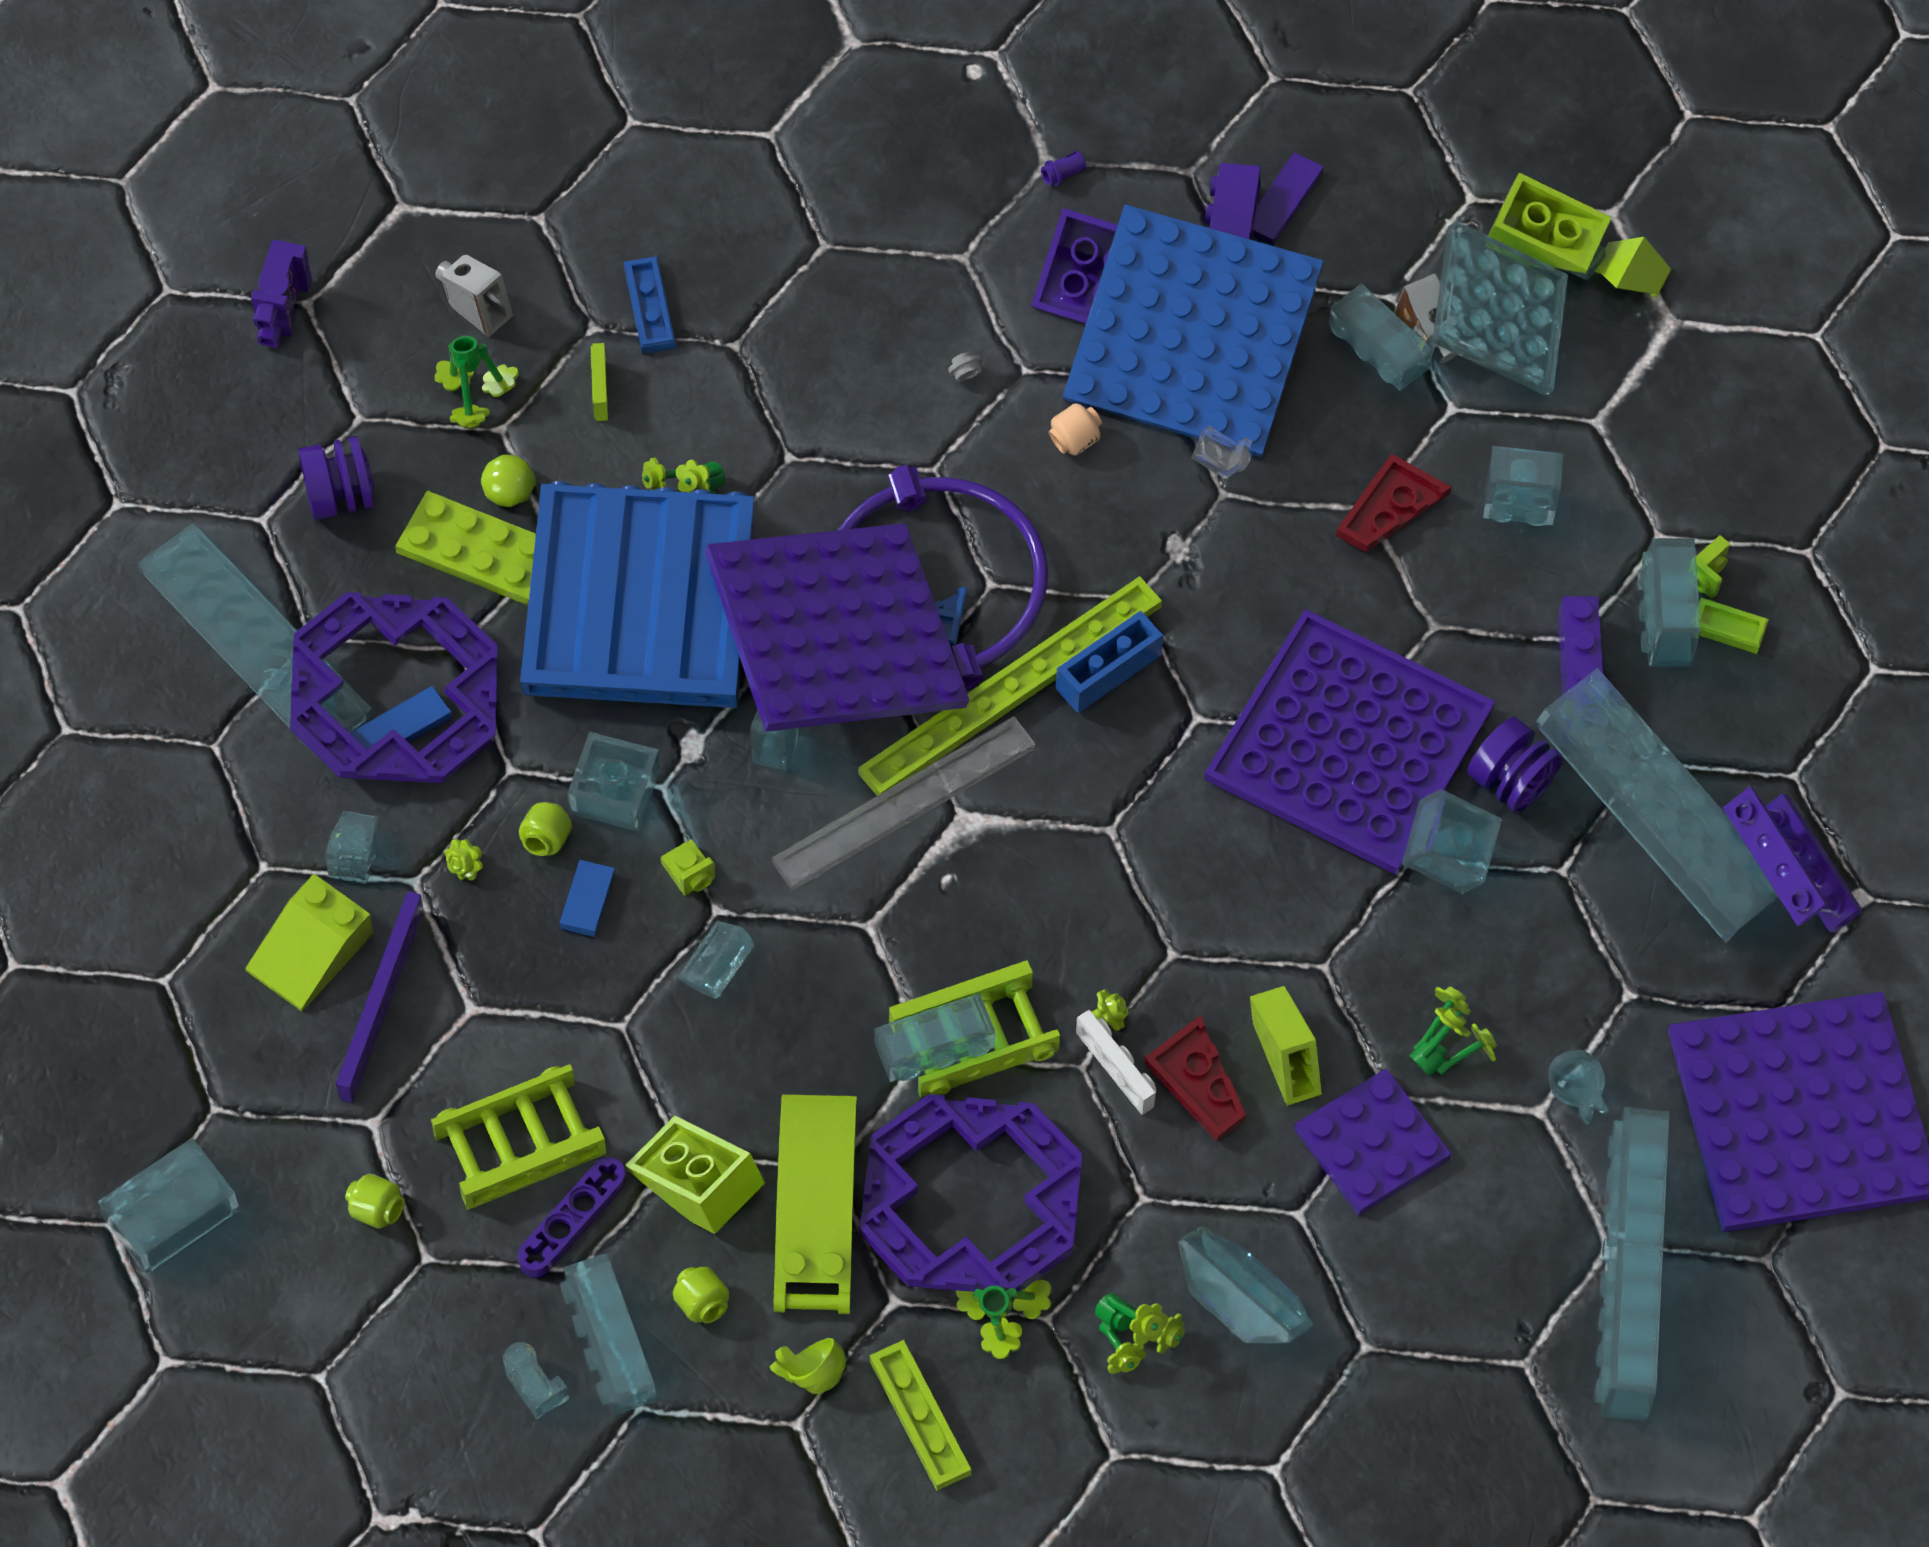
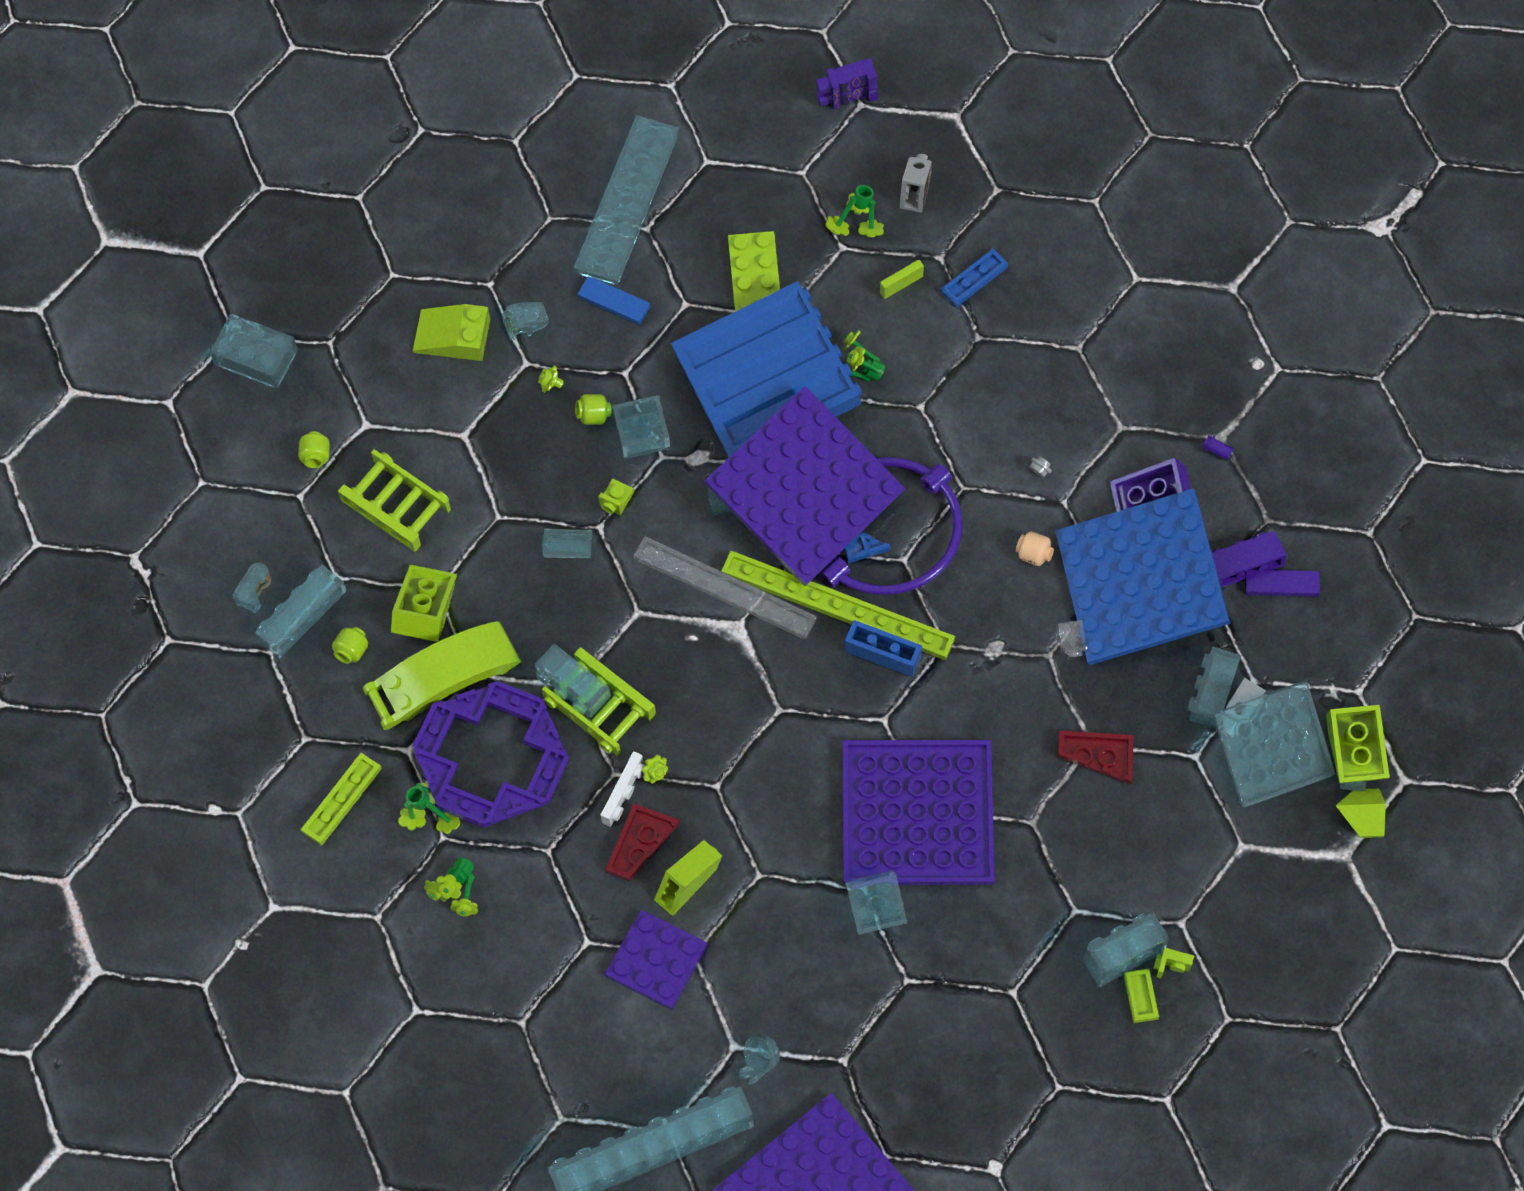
camera: 65 degrees right, 5 degrees up
(336, 478) = (745, 179): dark purple wheel -> none
(379, 997) = (439, 384): dark purple tile -> none
(392, 755) = (659, 324): dark purple plate -> none
(508, 480) = (808, 269): lime hair -> none
(575, 1219) = (362, 558): dark purple beam -> none
(587, 898) = (565, 455): blue tile -> none
(814, 1368) = (337, 727): lime piece -> none
(1240, 1290) = (513, 932): clear light blue wedge -> none
(1430, 1054) = (745, 961): plant -> none
(1512, 763) = (951, 913): dark purple wheel -> none
(1522, 486) = (1153, 821): clear light blue brick -> none
(1579, 639) = (1049, 921): dark purple brick -> none
(1658, 803) = (972, 1011): clear light blue brick -> none
(1792, 859) = (997, 1119): dark purple fence -> none

